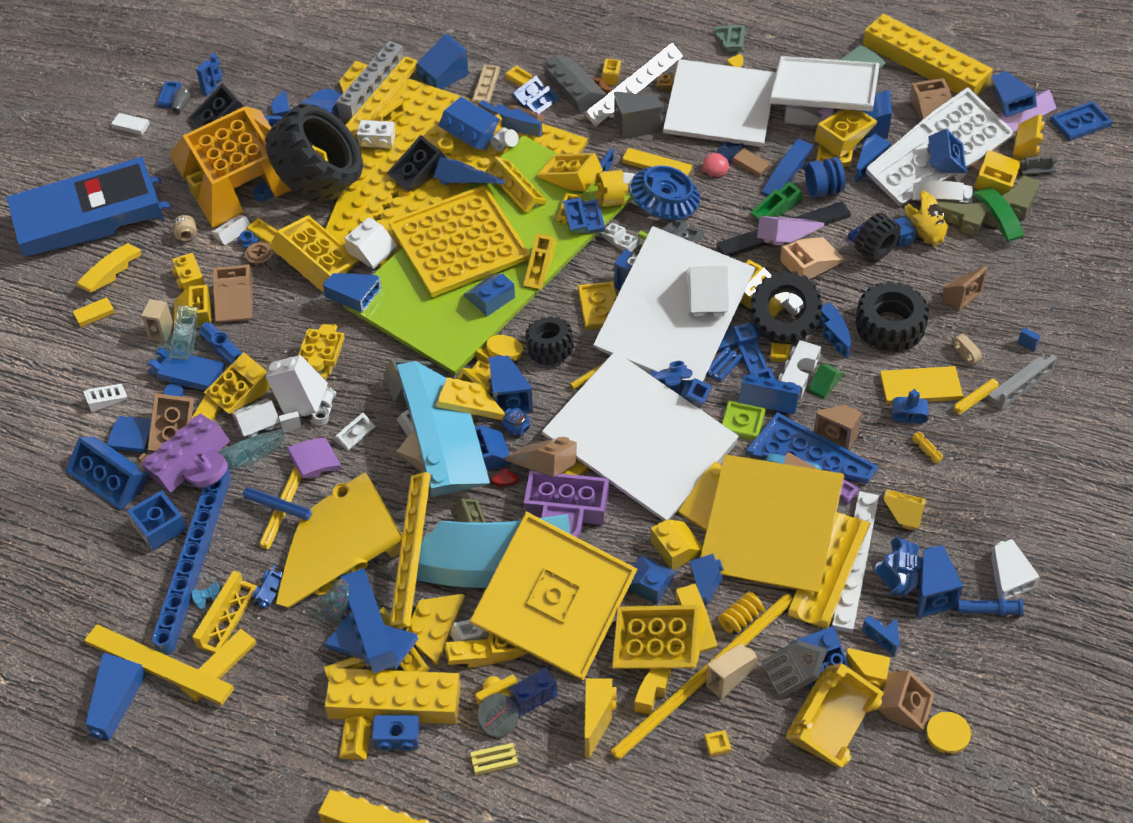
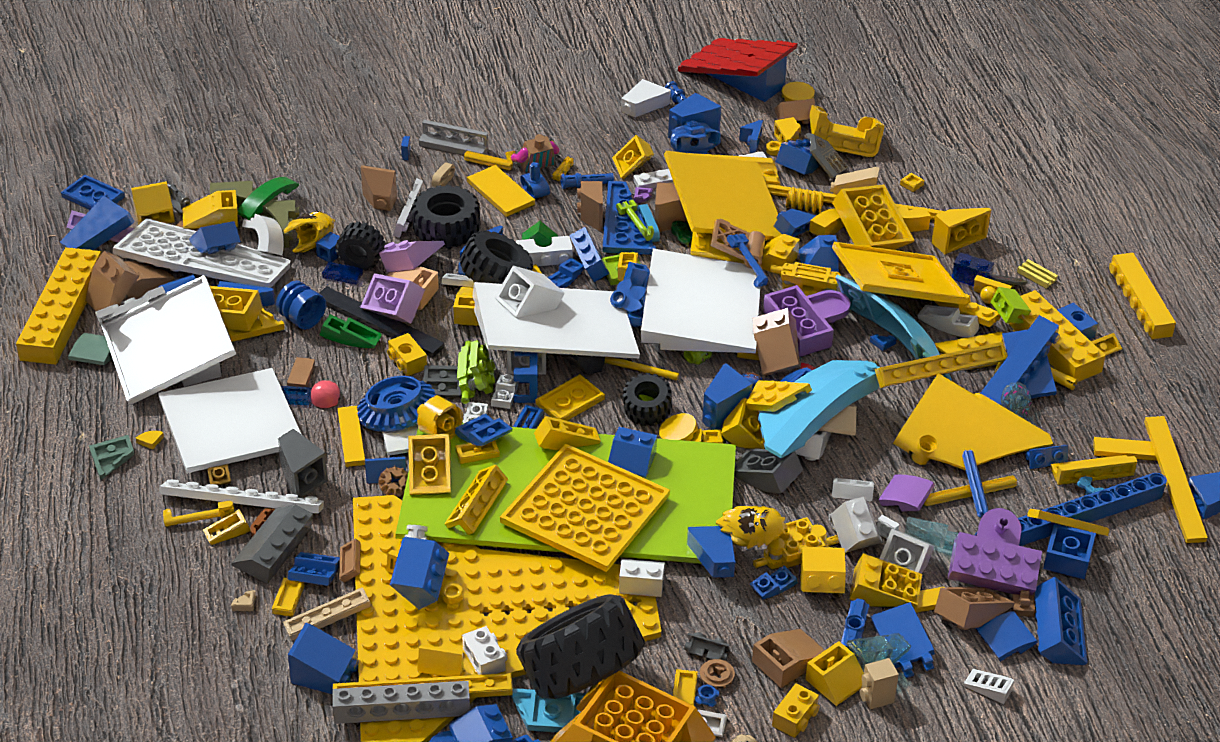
camera: 125 degrees left, 10 degrees down
(174, 389) = (936, 636): blue tile -> none
(176, 530) = (1054, 518): none -> yellow tile
(277, 345) = (823, 569): none -> yellow slope
(305, 320) = (774, 584): none -> blue slope
(312, 251) = (689, 611): yellow slope -> none
(343, 311) = (752, 525): none -> yellow head
(416, 164) = (504, 592): black slope -> none
(445, 665) = (1009, 305): none -> lime hinge
(460, 173) = (494, 543): blue wedge -> none
(514, 120) = (377, 555): blue slope -> none
(535, 58) = (244, 602): none -> tan tile
(591, 270) = (536, 420): none -> blue tile
(618, 533) = (808, 277): none -> yellow piece
(643, 46) = (224, 510): none -> yellow hinge
(687, 489) = (741, 242): none -> blue hinge
(687, 512) = (755, 243): none -> medium nougat piece
(723, 224) = (407, 354): none -> yellow brick
(734, 407) = (624, 259): none -> yellow slope
(788, 166) = (295, 338): blue slope -> none
(822, 454) = (630, 209): none -> lime hinge
(849, 267) = (407, 254): none -> lavender slope
(857, 644) = (773, 147): none -> yellow tile
(885, 76) = (113, 311): none -> white wing
(897, 447) = (575, 180): none -> blue pin
(921, 71) = (109, 281): none -> medium nougat slope
(935, 303) = (406, 214): none -> white wing
(952, 429) = (535, 150): none -> torso
(1021, 684) = (744, 64): none -> red piece

